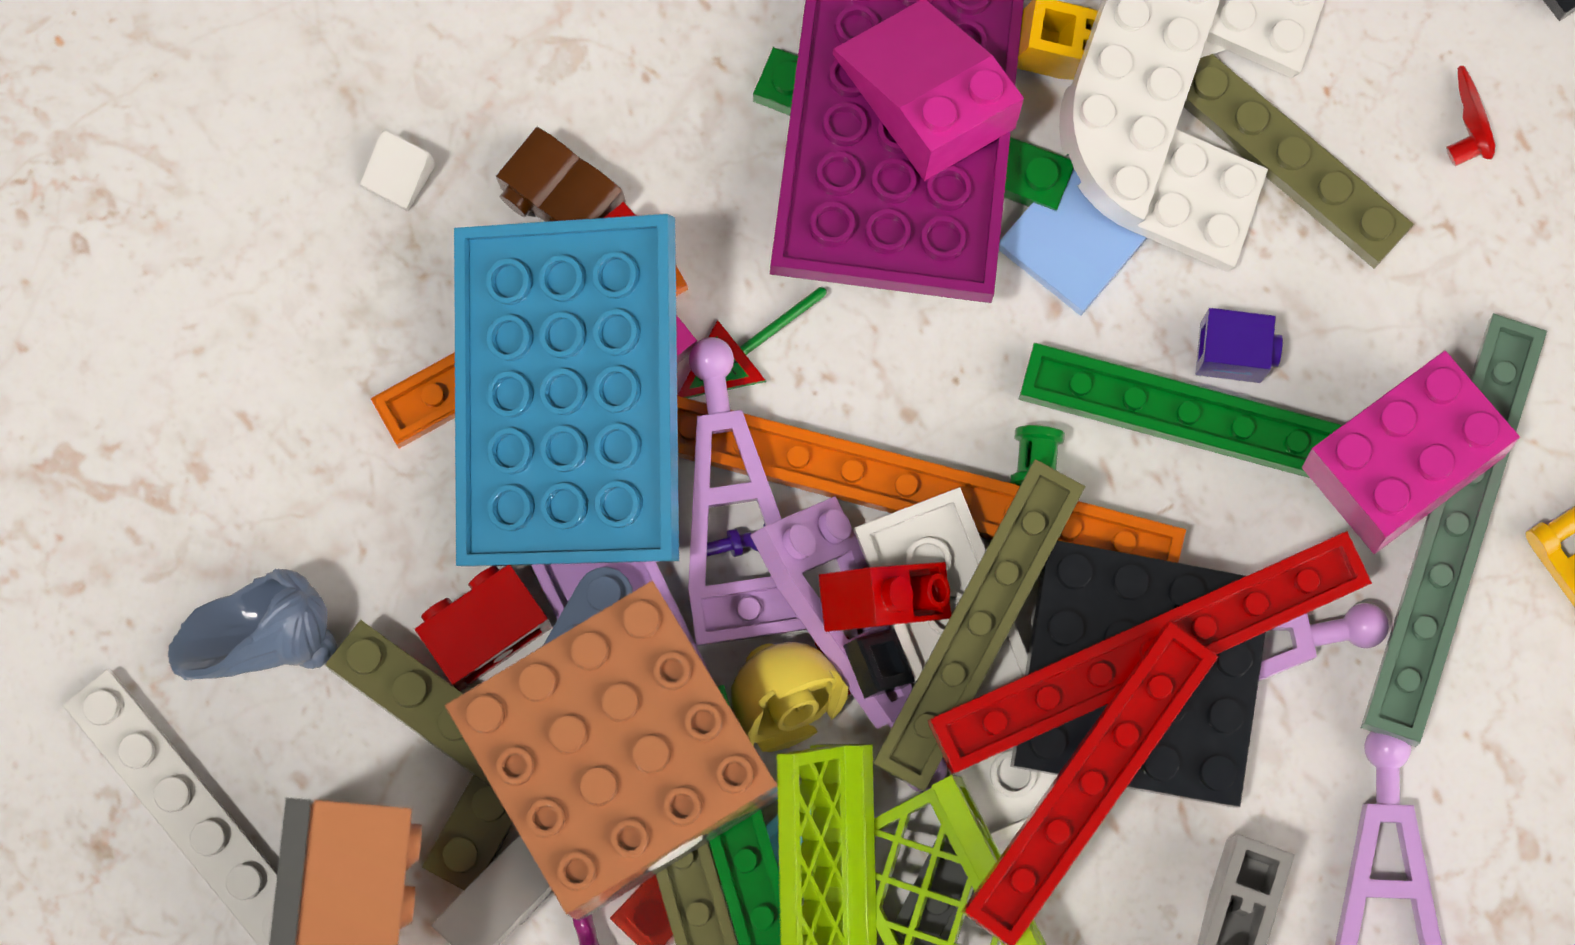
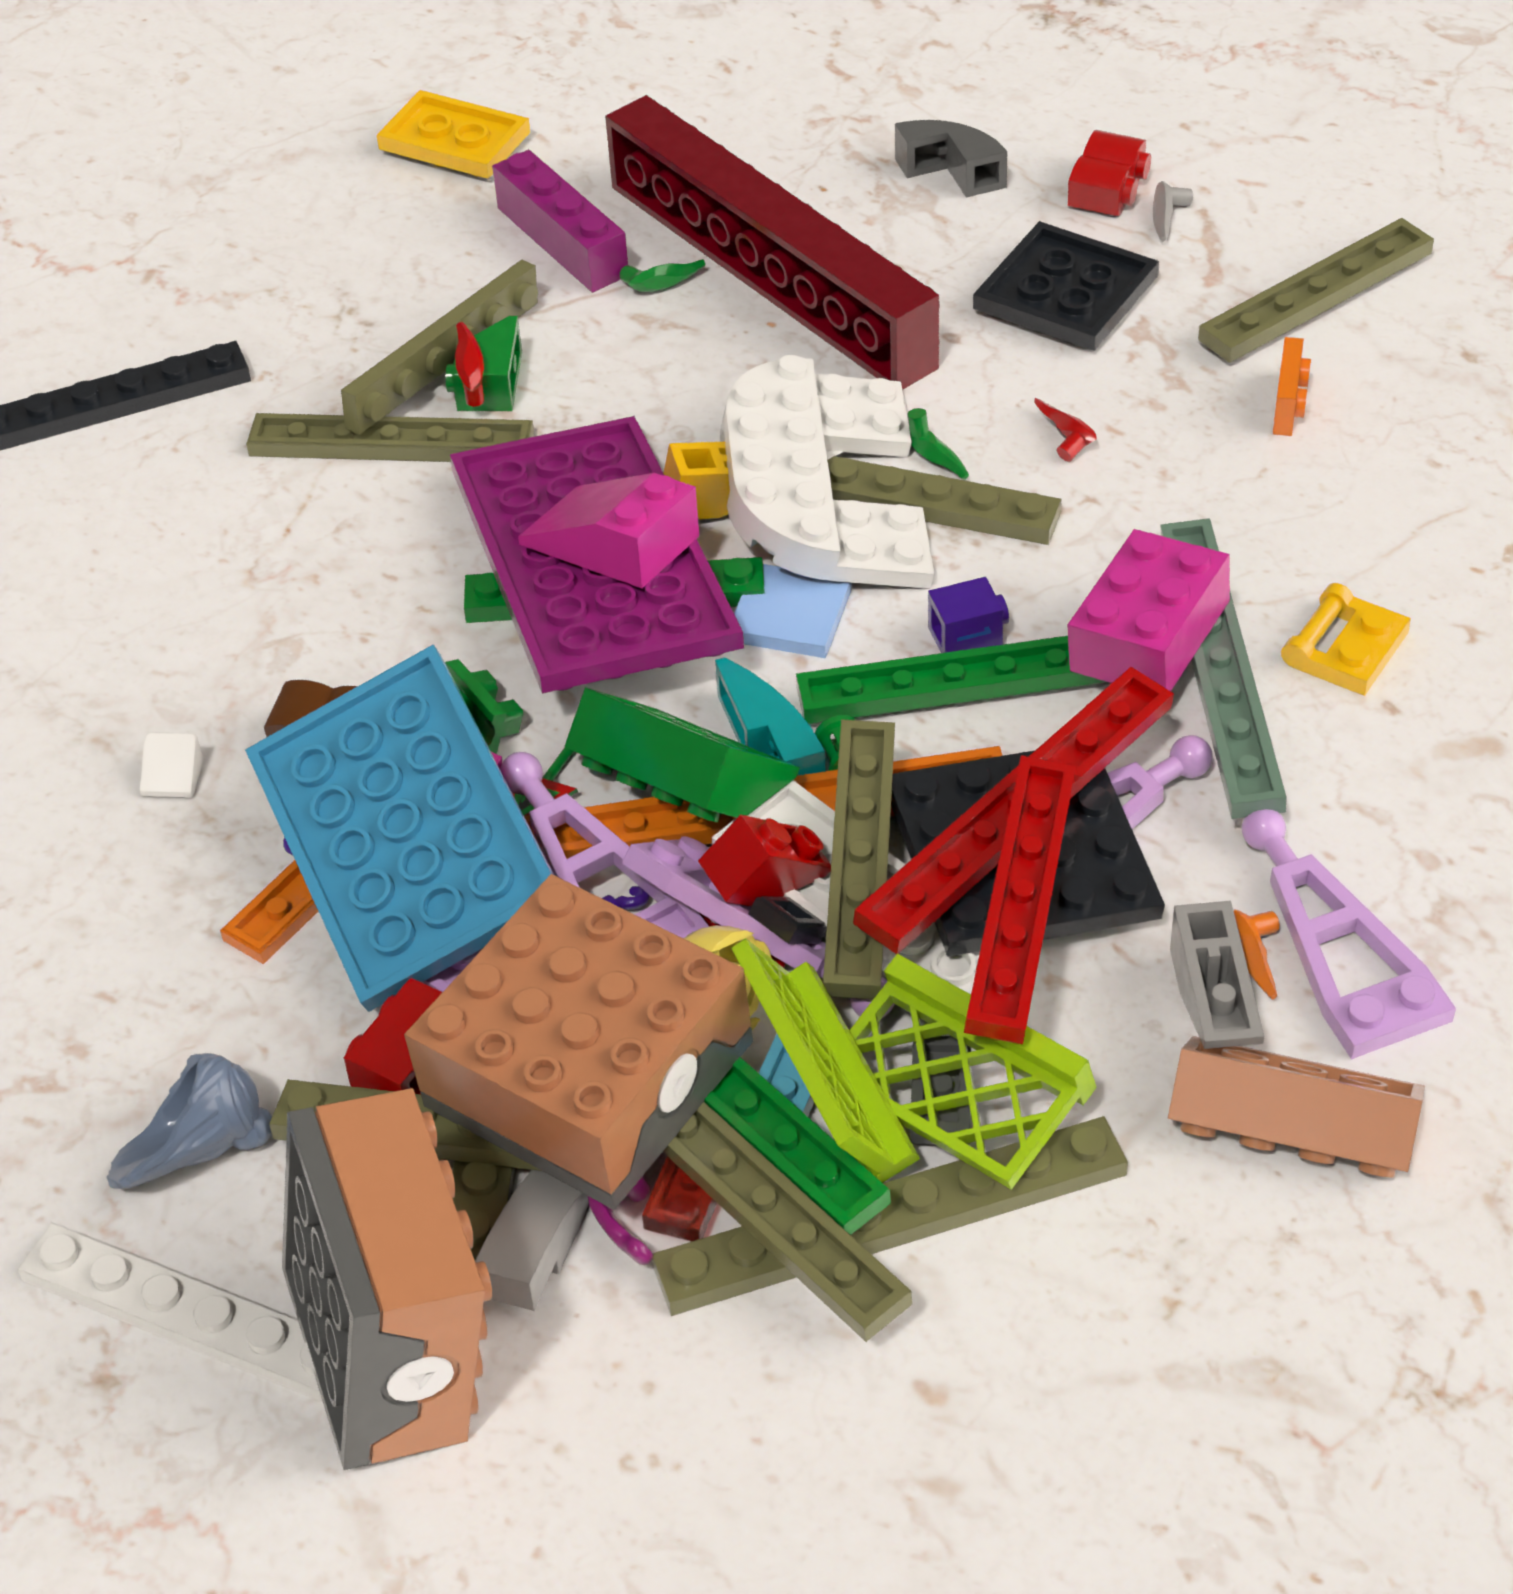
camera: 20 degrees left, 30 degrees down
(701, 238) = (480, 693): none -> green hips
(868, 410) = (674, 757): none -> green slope
(978, 397) = (766, 718): none -> teal slope
(1301, 878) = (1255, 953): none -> orange bar
(1322, 86) = (930, 446): none -> green bar

